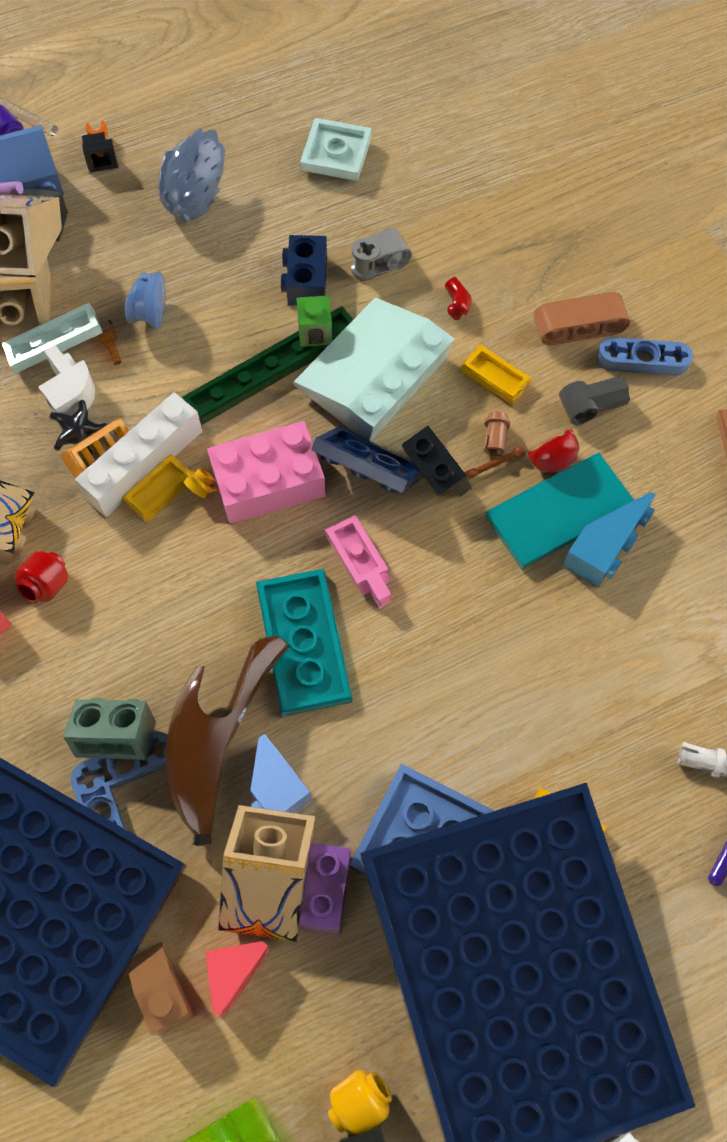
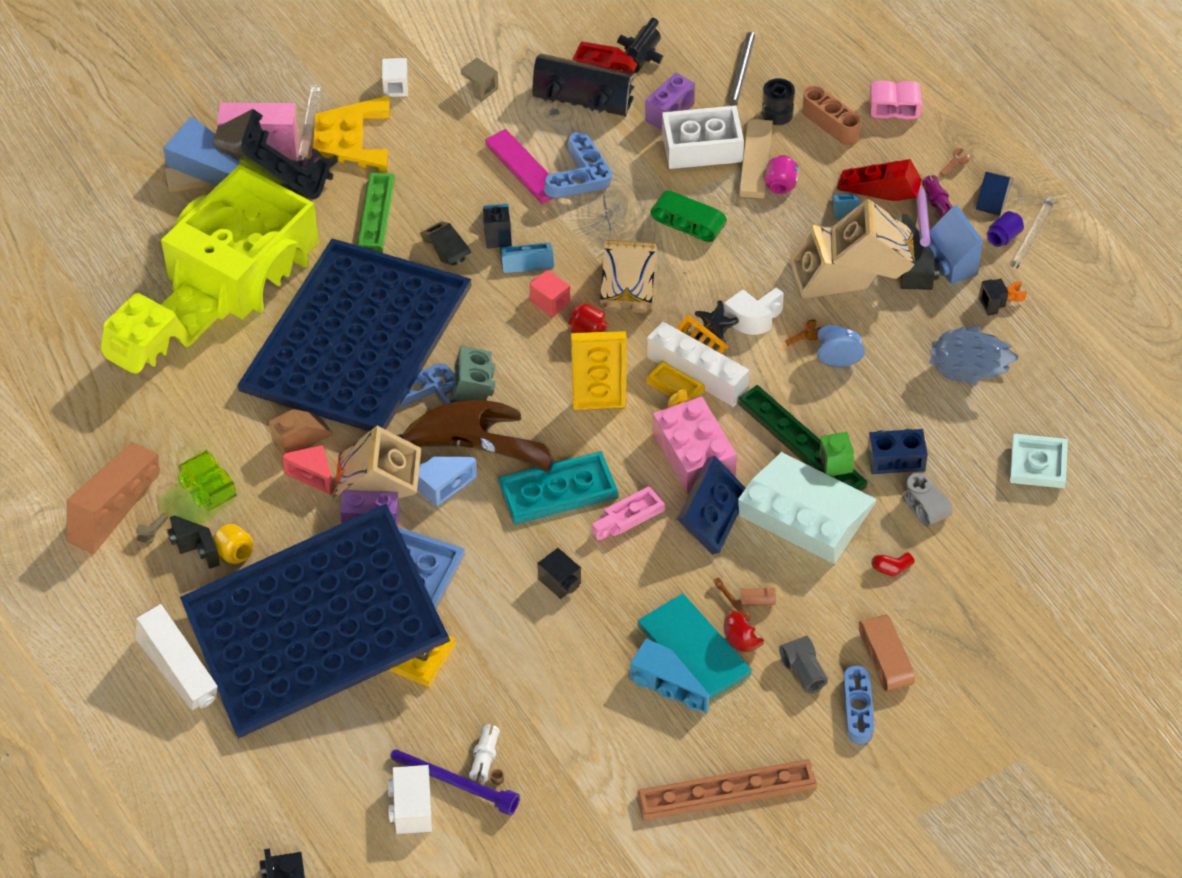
camera: 85 degrees right, 15 degrees down
(62, 331) = (796, 294): light aqua plate -> none
(160, 550) = (599, 370): none -> yellow tile
(436, 463) = (719, 553): black bracket -> none
(449, 647) = (559, 573): none -> black brick
(496, 374) = (820, 597): yellow tile -> none

